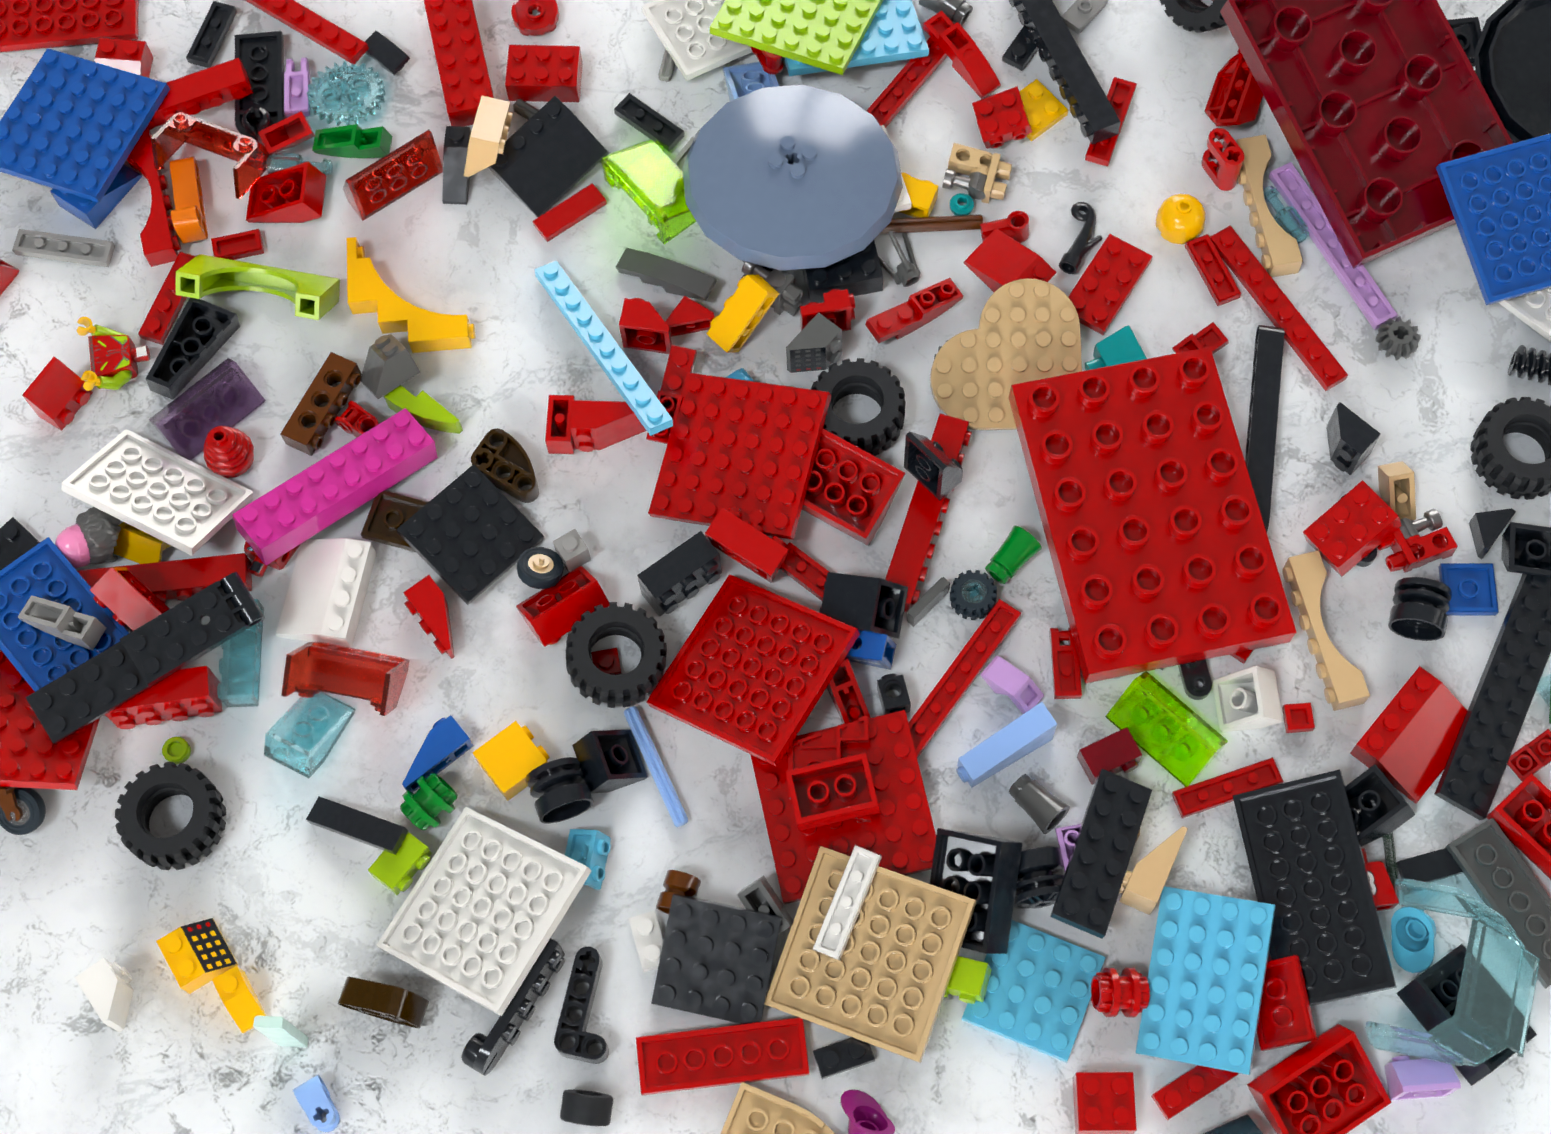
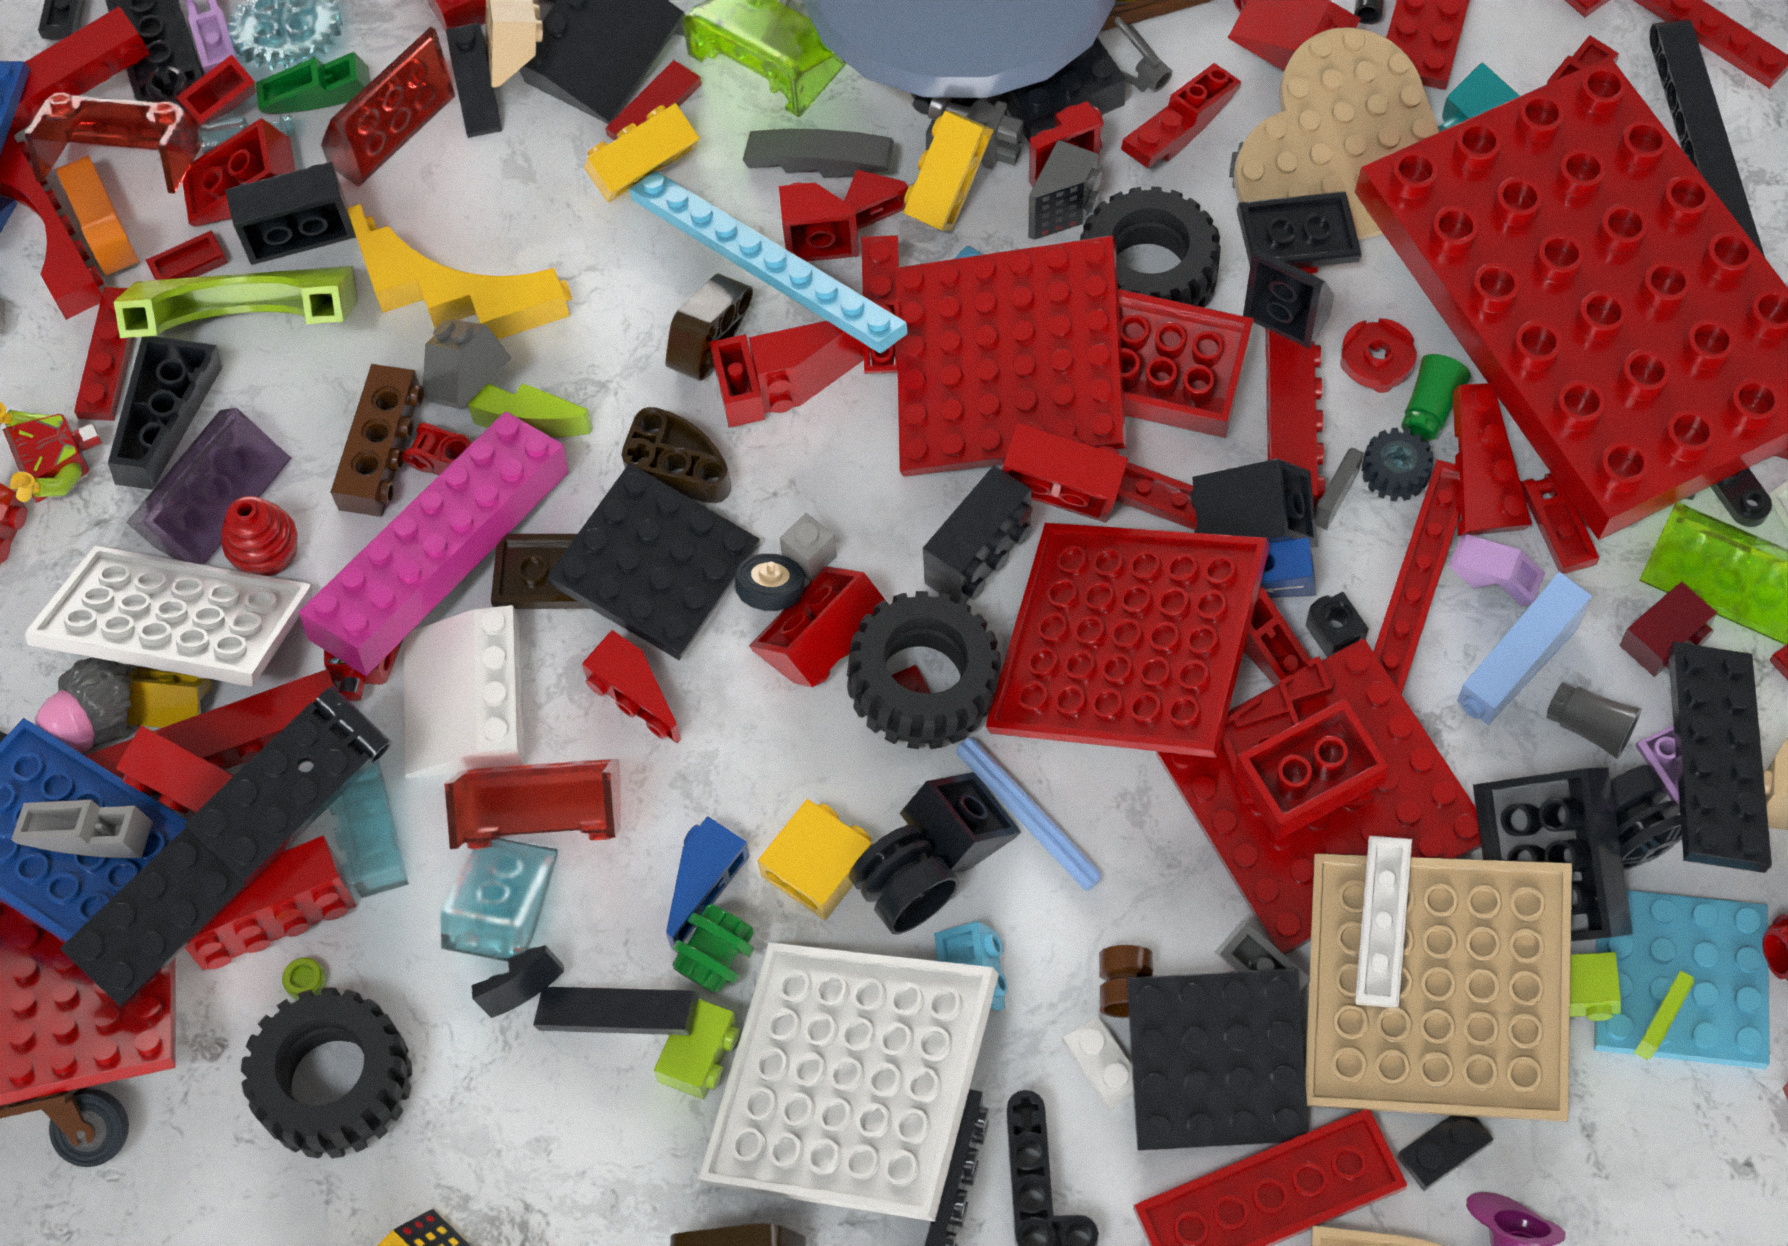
camera: 15 degrees left, 5 degrees down
(308, 232) = (290, 213): none -> black brick
(309, 788) = (526, 978): none -> black slope
(549, 245) = (640, 151): none -> yellow brick
(553, 377) = (706, 317): none -> dark brown beam
(960, 417) = (1301, 229): none -> black tile
(988, 528) = (1373, 372): none -> red plate
(1007, 1012) = (1664, 1015): none -> lime tile
(1028, 617) = (1489, 479): none -> red wing

